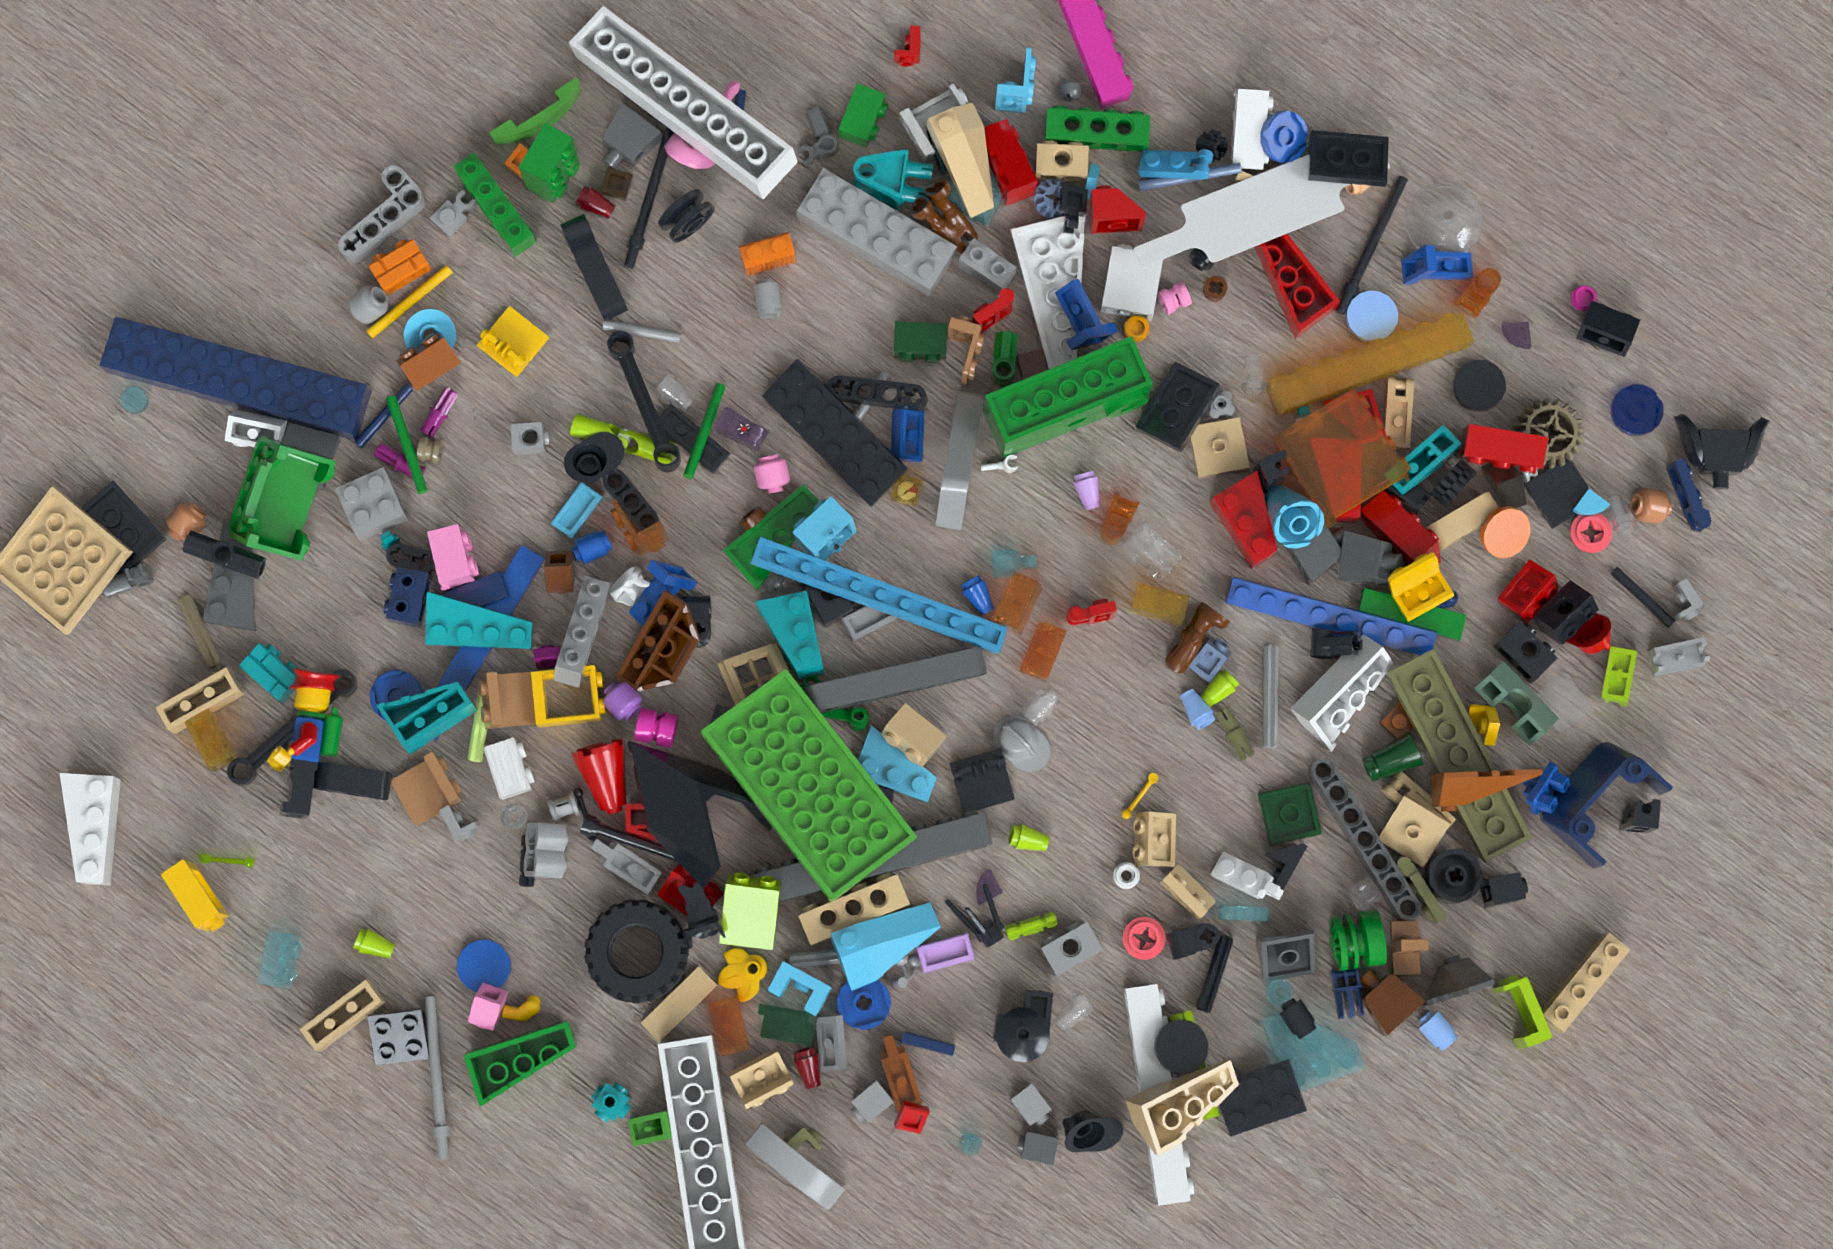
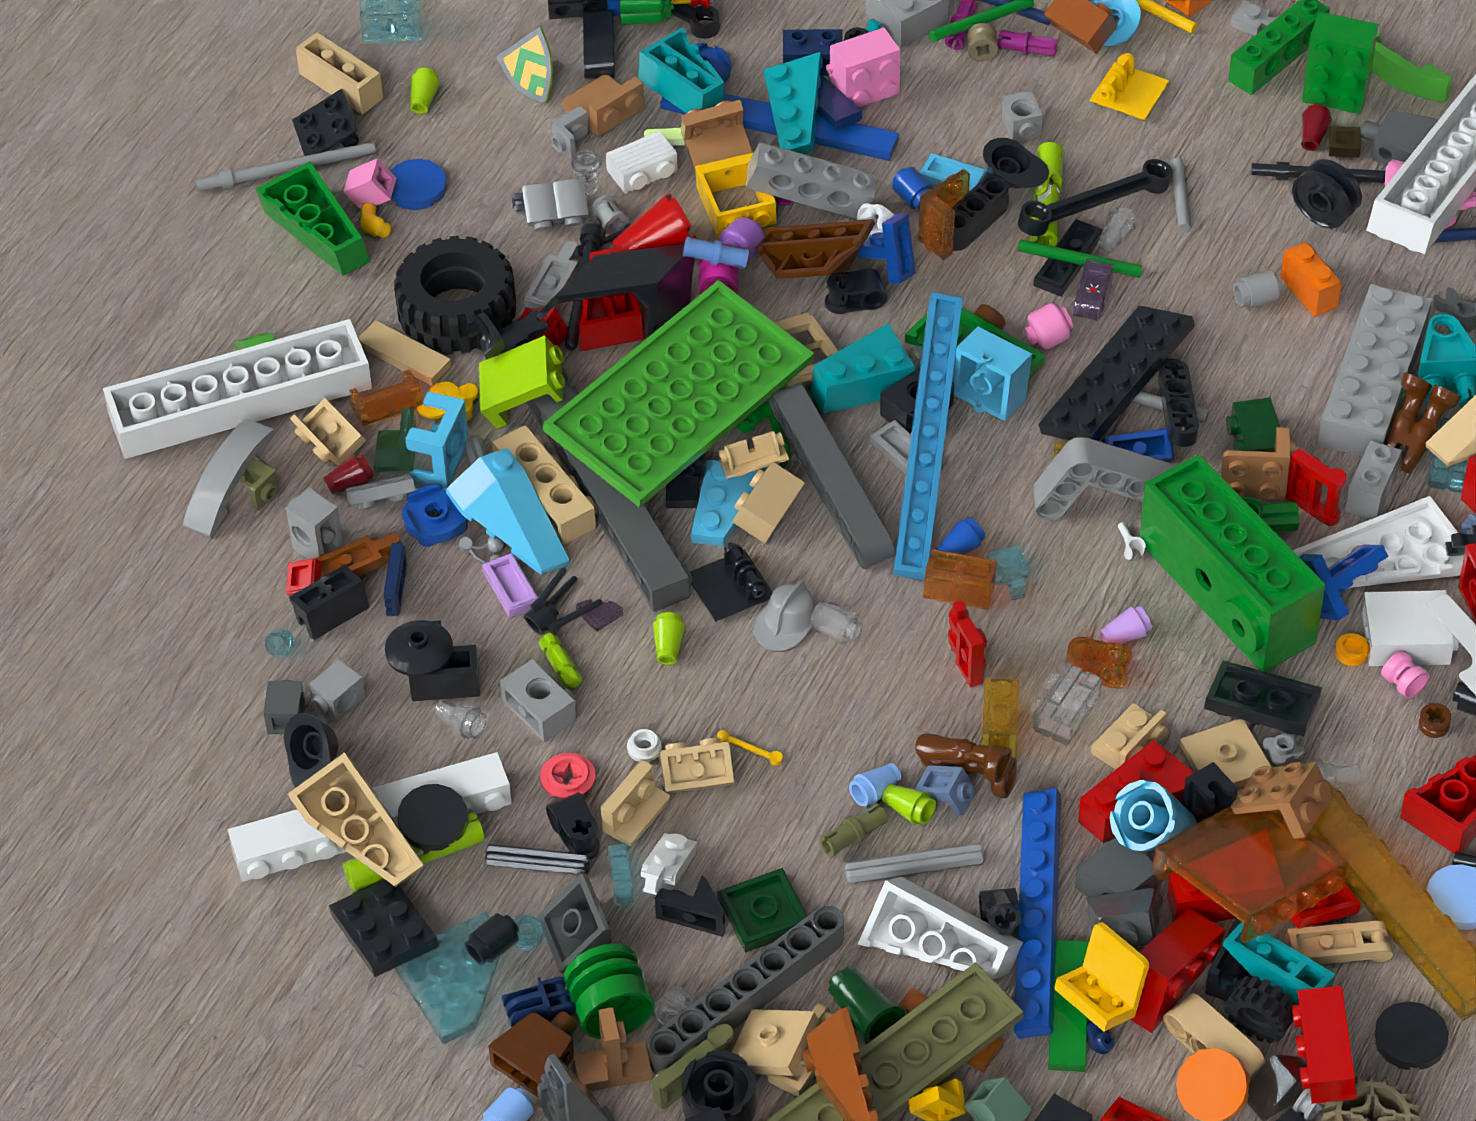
camera: 85 degrees right, 30 degrees down
(372, 846) = (529, 66): none -> shield
(559, 572) = (878, 158): reddish brown brick -> none
(593, 267) = (1243, 134): black beam -> none
(621, 1105) = (279, 306): teal brick -> none
(655, 726) = (715, 252): none -> medium blue pin
(871, 738) = (739, 460): none -> tan hinge
(940, 1100) = (329, 601): none -> black hinge
(1043, 651) = (906, 621): clear orange hinge -> none
(1189, 512) = (1129, 735): none -> tan bracket
(1289, 419) = (1293, 789): none -> medium nougat bracket

